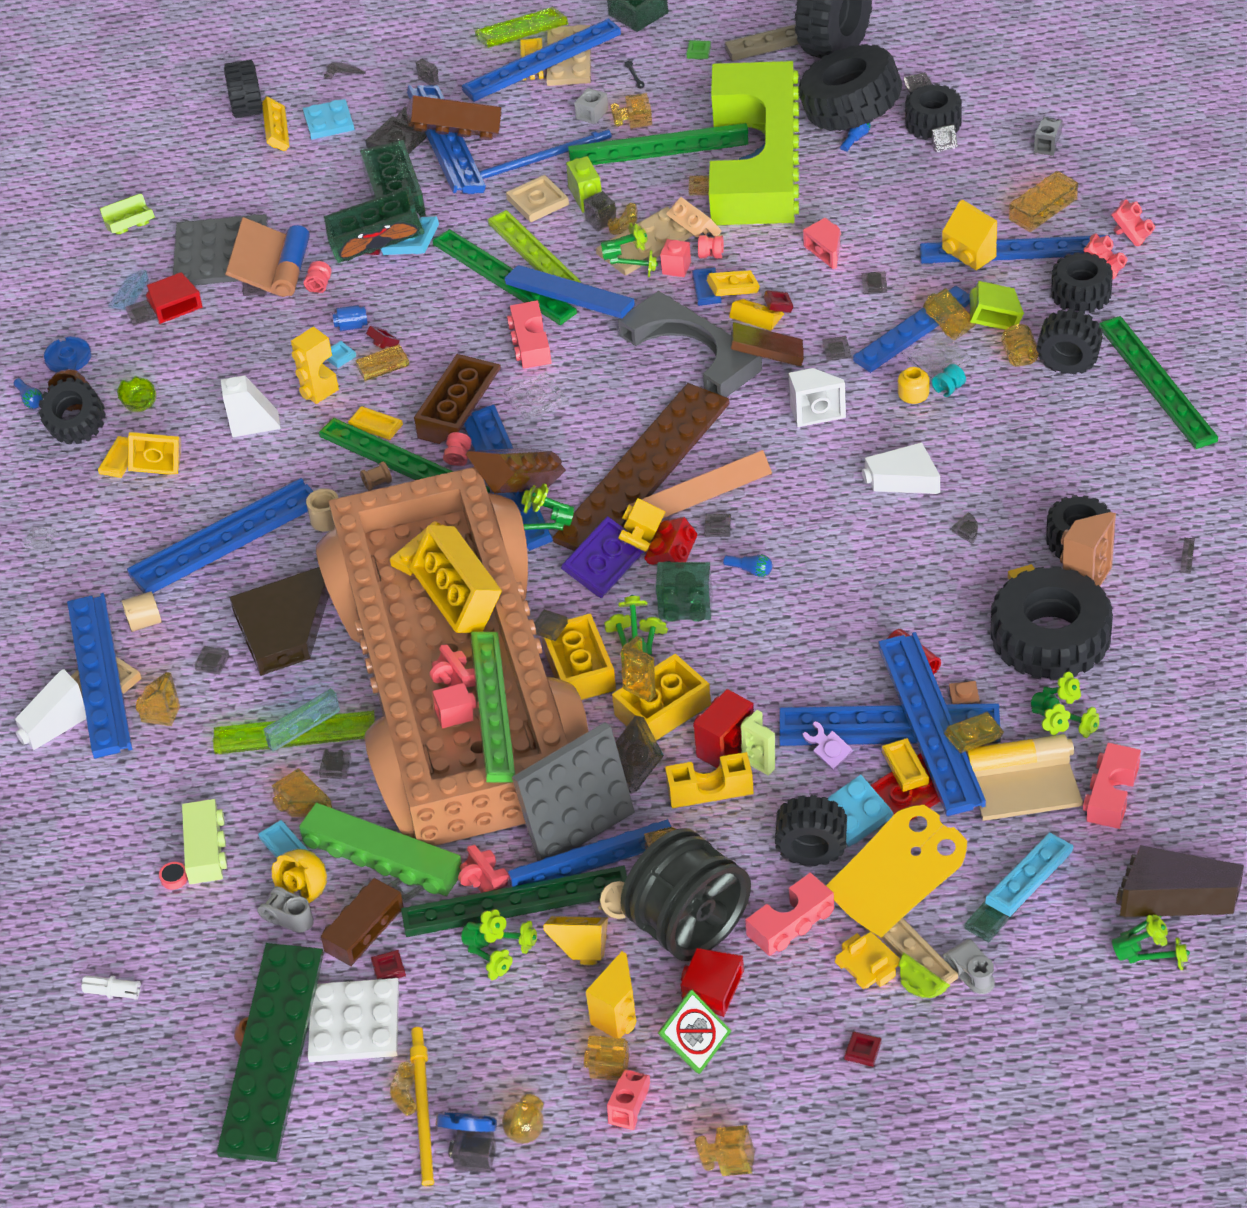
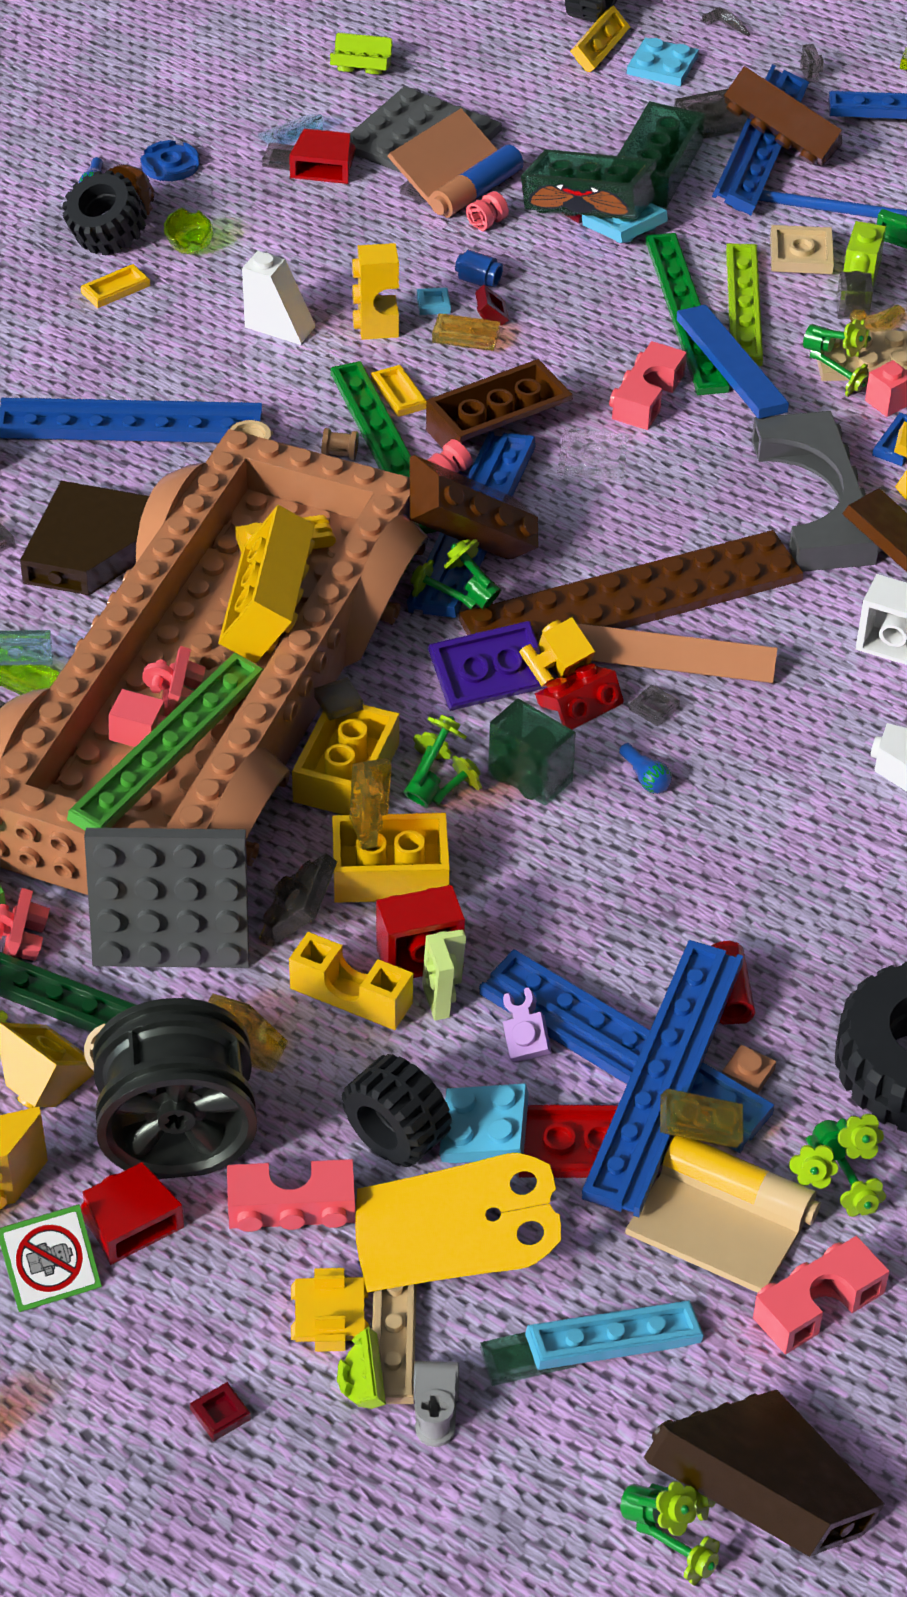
camera: 30 degrees right, 0 degrees up
(154, 453) = (141, 295): yellow slope -> none
(586, 857) = (128, 979): blue plate -> none
(905, 765) = (592, 1106): yellow tile -> none

